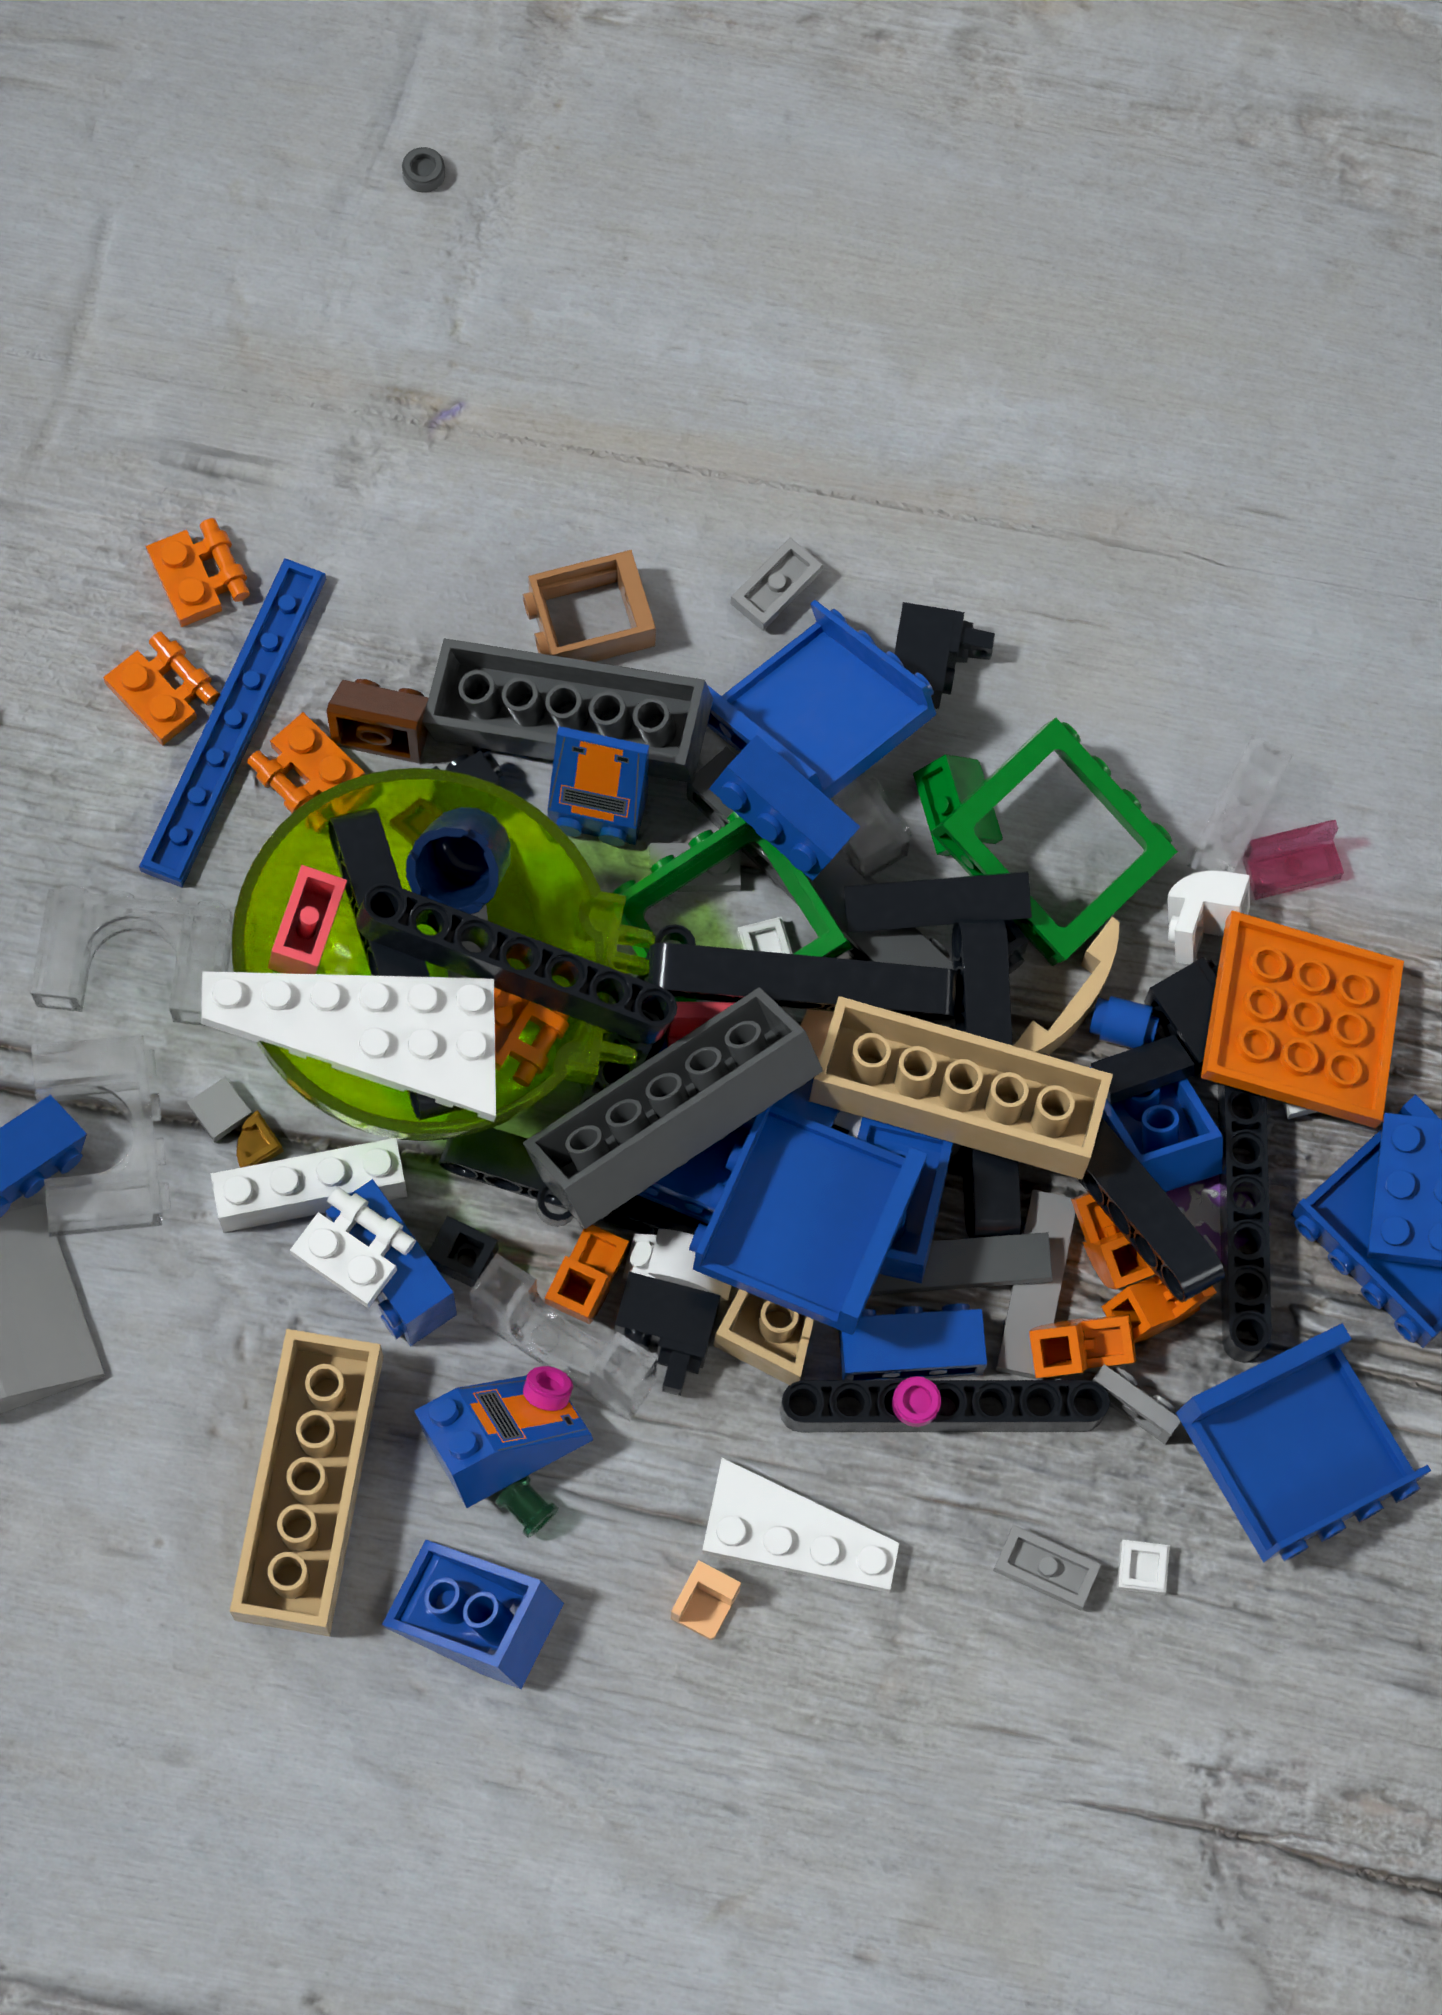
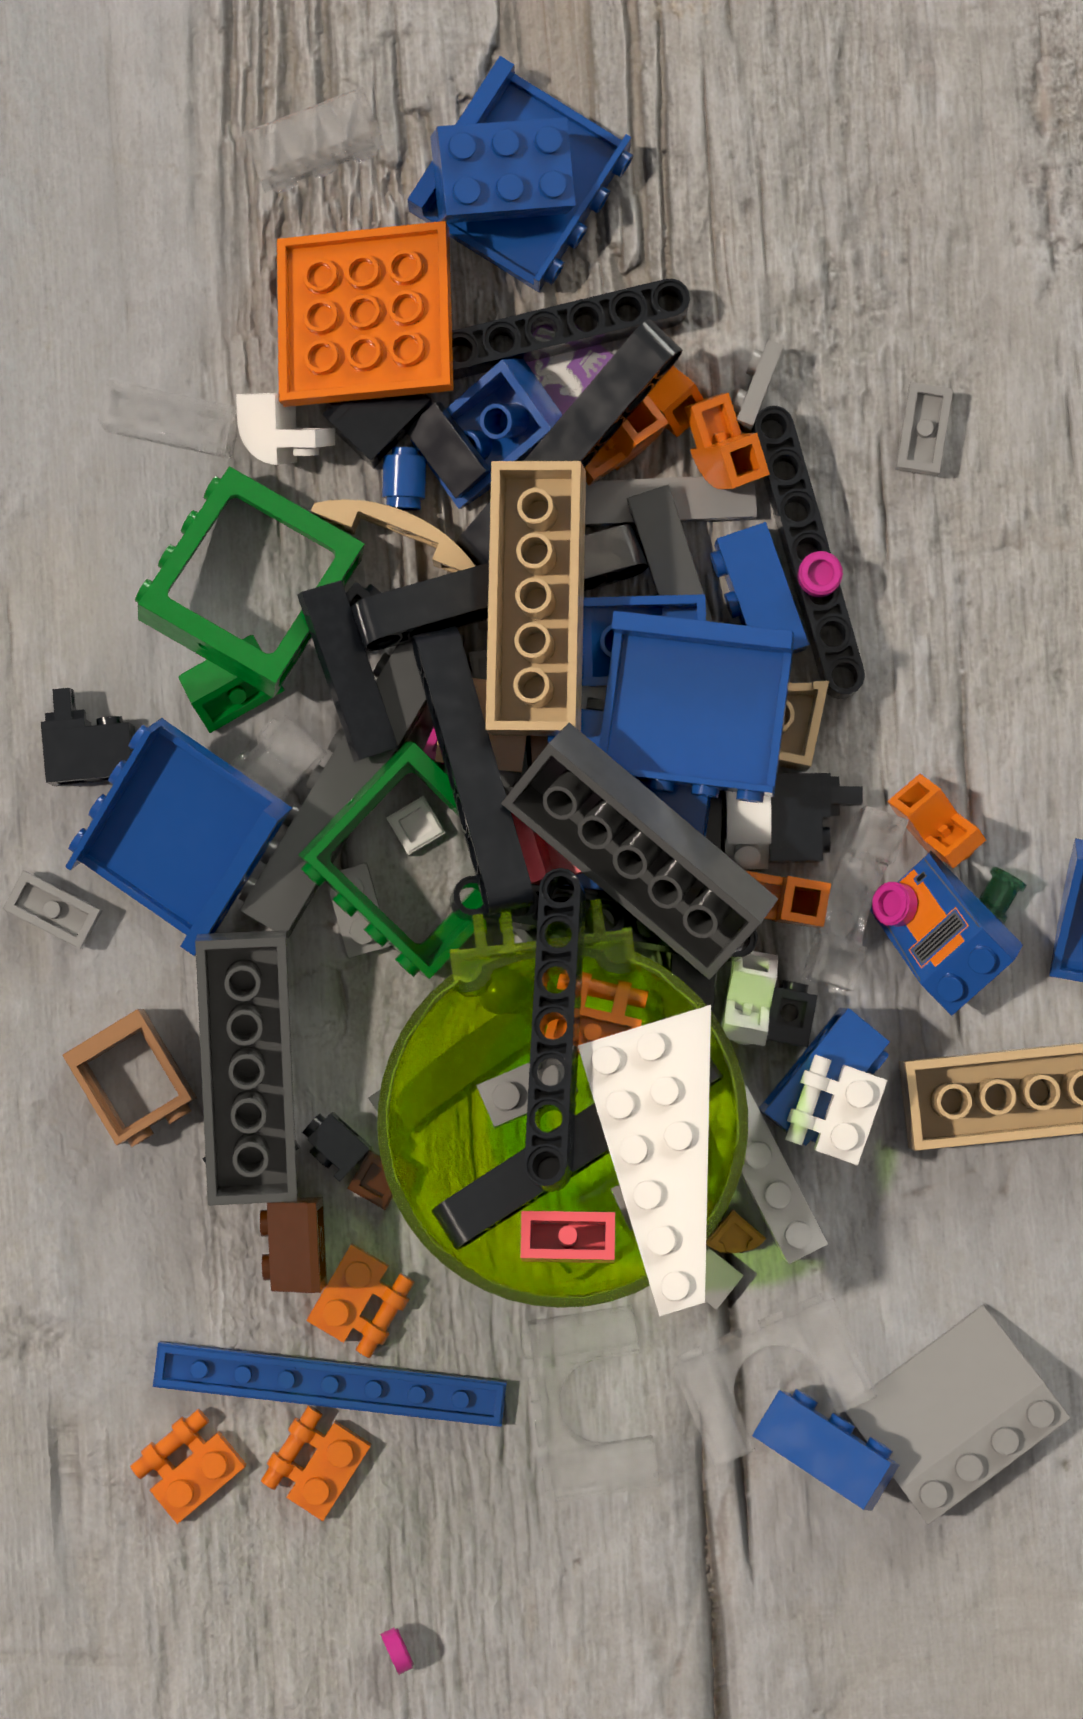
camera: 100 degrees left, 15 degrees up
(460, 859) = (465, 1111): dark blue cylinder -> none
(494, 1213) = (749, 998): none -> brick
(598, 786) = (320, 1016): blue slope -> none
(623, 1456) = (936, 821): none -> orange brick
(705, 1600) = (1035, 717): light nougat panel -> none
(784, 807) = (307, 831): blue brick -> none
(784, 1531) = (953, 668): white wing -> none
(1143, 1567) = (897, 348): white tile -> none
(1293, 860) = (204, 360): clear pink panel -> none
(1298, 1446) = (762, 231): blue panel -> none

